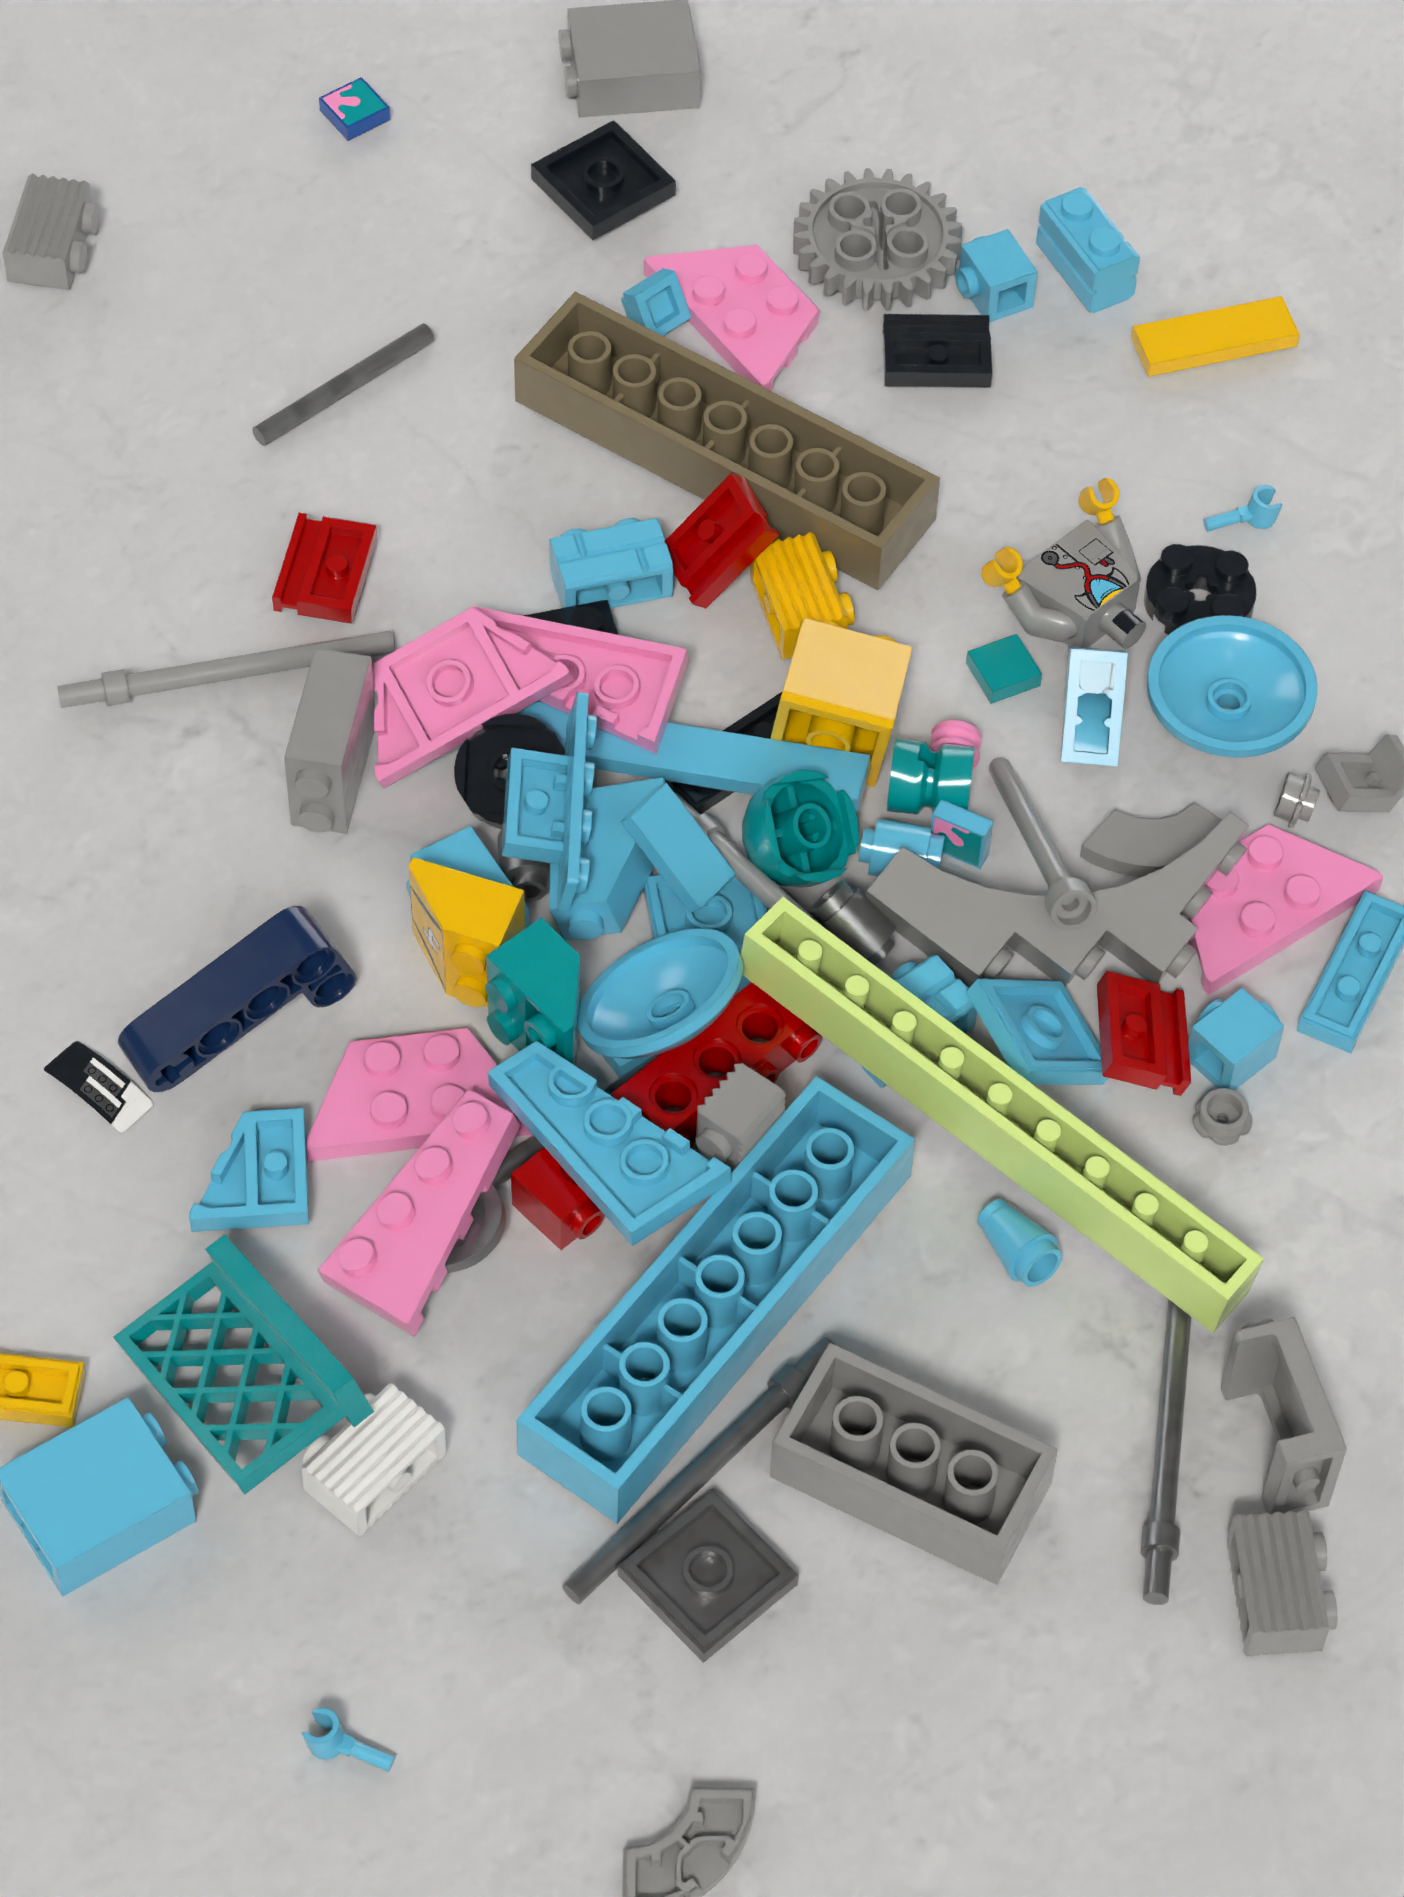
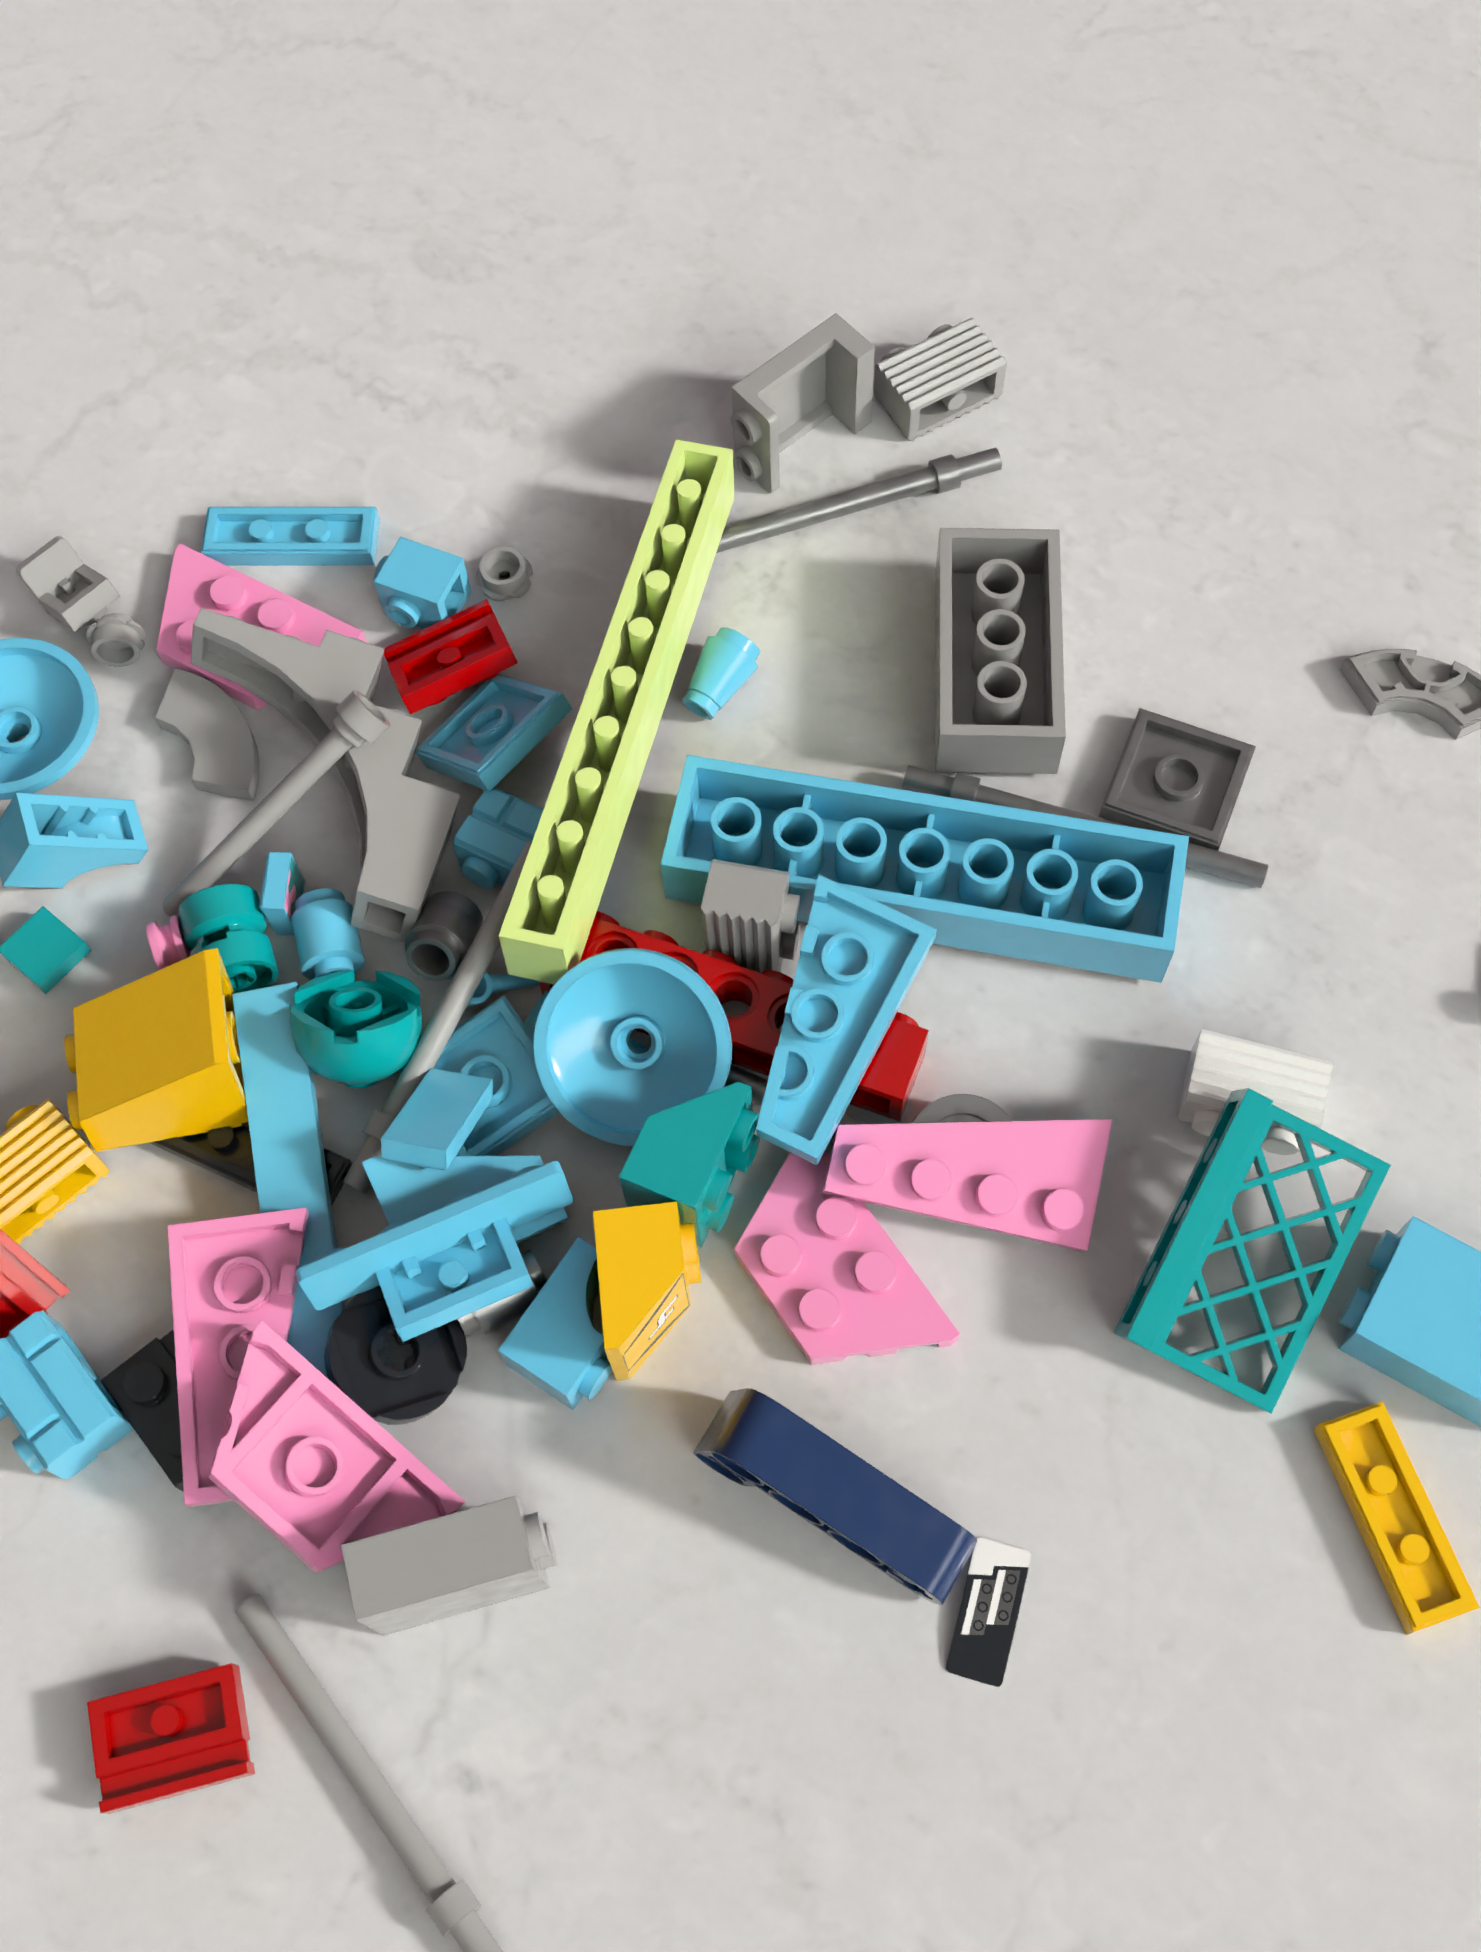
camera: 110 degrees left, 10 degrees up
(259, 1175) = (1015, 1365): medium azure wing -> none

